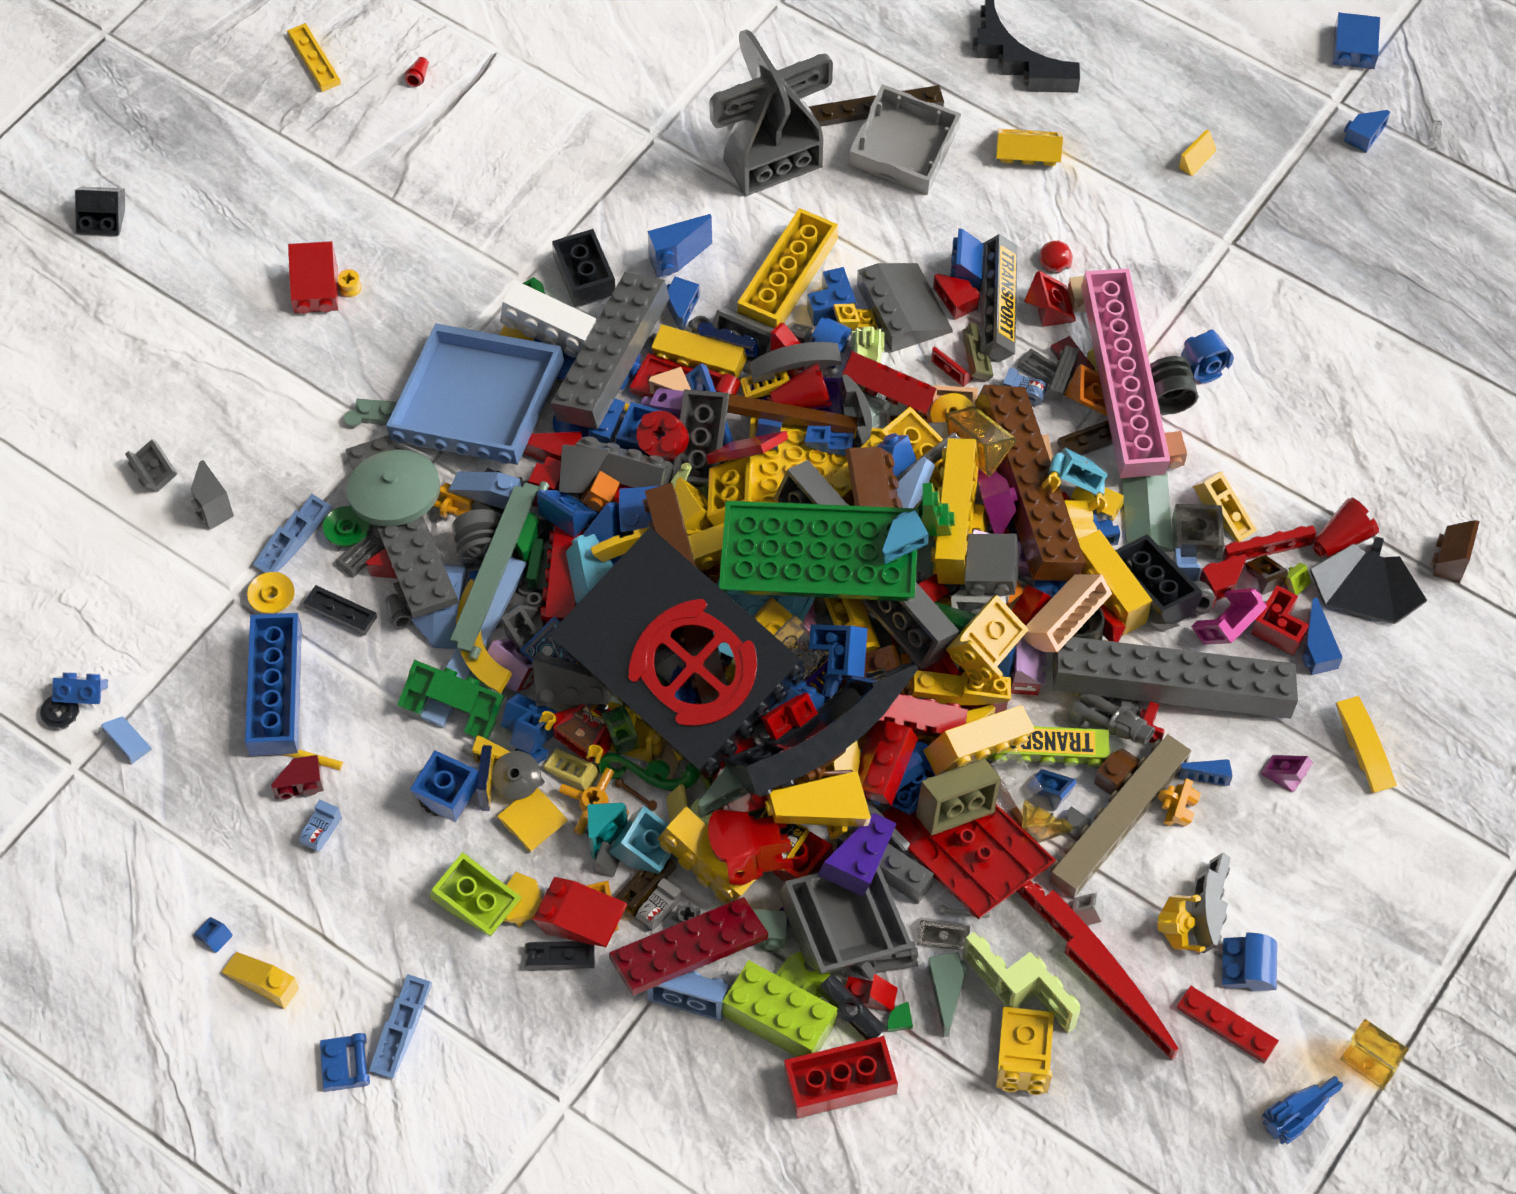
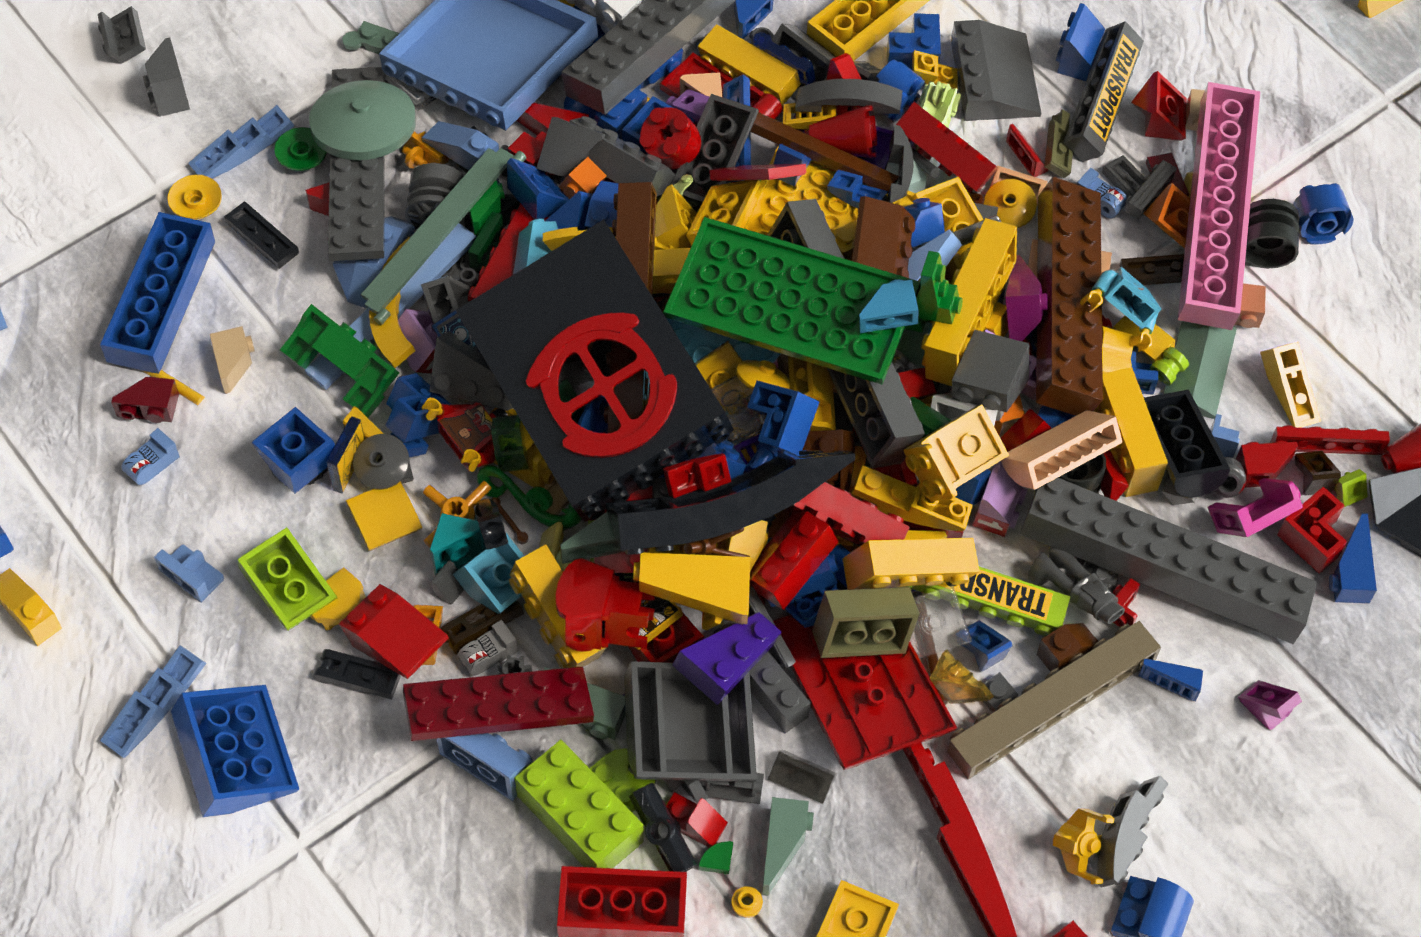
camera: 15 degrees right, 0 degrees up
(335, 1062) = (68, 722): blue plate -> none
(355, 720) = (232, 355): none -> tan slope
(359, 561) = (298, 192): dark grey tile -> none
(389, 911) = (189, 571): none -> medium blue panel
(397, 611) = (319, 253): dark grey cone -> none
(481, 1045) = (233, 748): none -> blue slope
(584, 777) = (458, 486): light yellow slope -> none
(630, 800) = (490, 524): none -> black plate
(803, 616) = (765, 371): none -> yellow dish
(935, 1052) = (747, 910): none -> yellow plate
(942, 909) = (811, 748): light grey hinge -> none
(956, 295) = (1058, 77): red slope -> none
(991, 439) = (1036, 231): clear yellow slope -> none
(1021, 981) = (872, 857): yellowish green bracket -> none
(1055, 256) = (1184, 64): red hair -> none
(1088, 908) = (981, 795): light grey slope -> none
(1125, 518) = (1170, 365): none -> lime wheel
(1174, 801) = (1126, 700): light orange hips -> none
(1198, 530) = (1250, 402): clear smoke brick -> none
(1366, 744) = (1374, 698): yellow slope -> none

